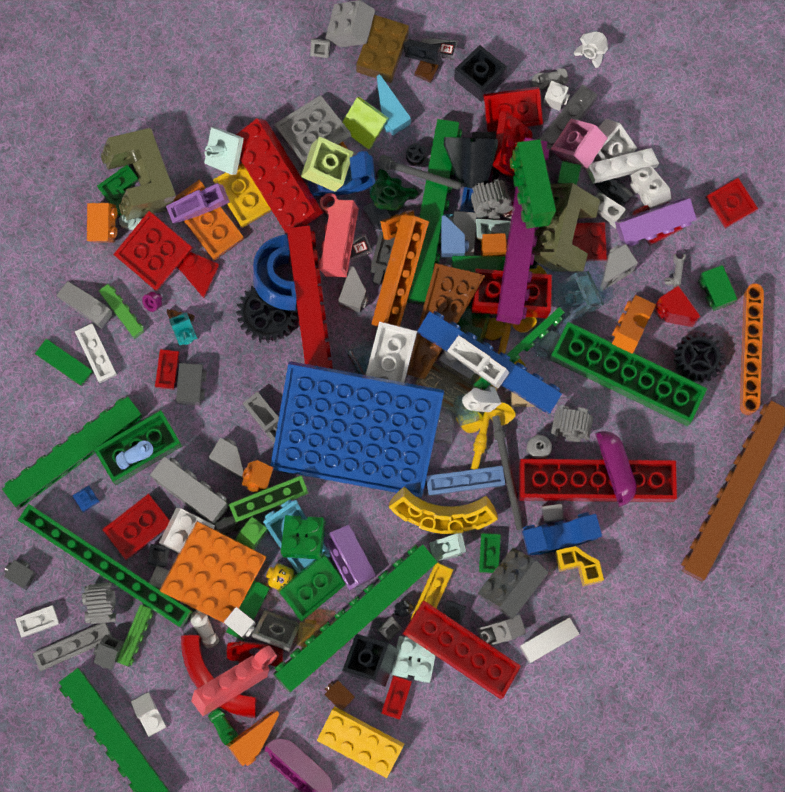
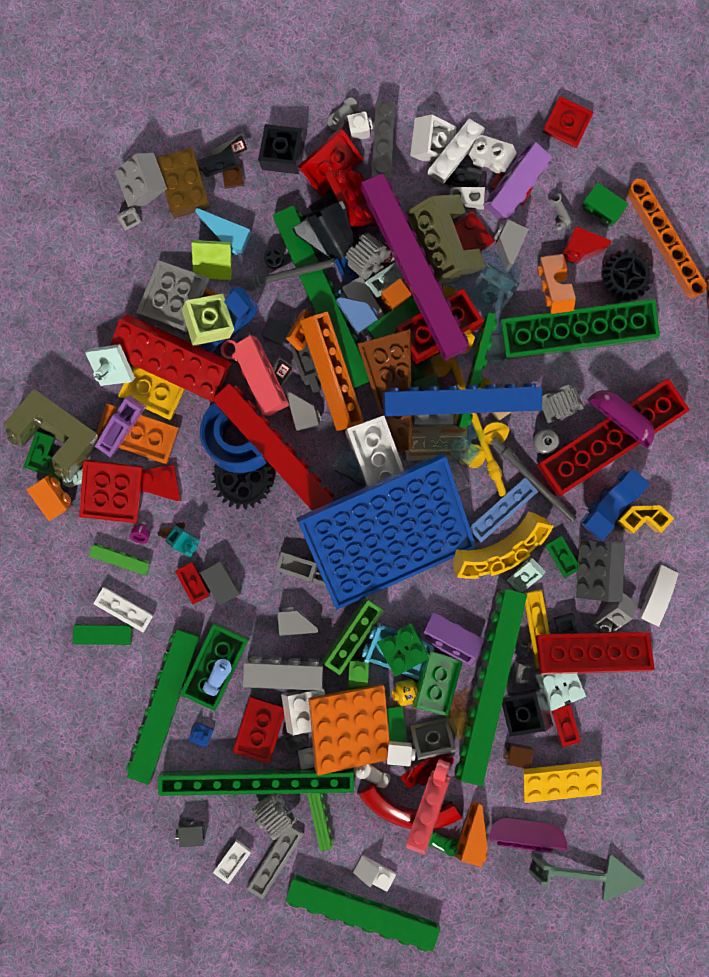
camera: 30 degrees left, 10 degrees up
(85, 304) = (85, 575): light grey slope -> none
(108, 652) = (307, 848): dark grey brick -> none
(227, 525) = (332, 680): flat silver plate -> none
(257, 476) = (330, 624): orange brick -> none
(389, 193) = (275, 307): dark green tile -> none
(478, 361) = (455, 408): white slope -> none
(481, 400) = (474, 435): white leg -> none
(533, 184) = (399, 220): green brick -> none
(552, 513) = (591, 488): light grey slope -> none
(569, 173) = (417, 190): green brick -> none
(579, 143) = (409, 156): bright pink brick -> none
(593, 47) = (362, 61): white brick -> none

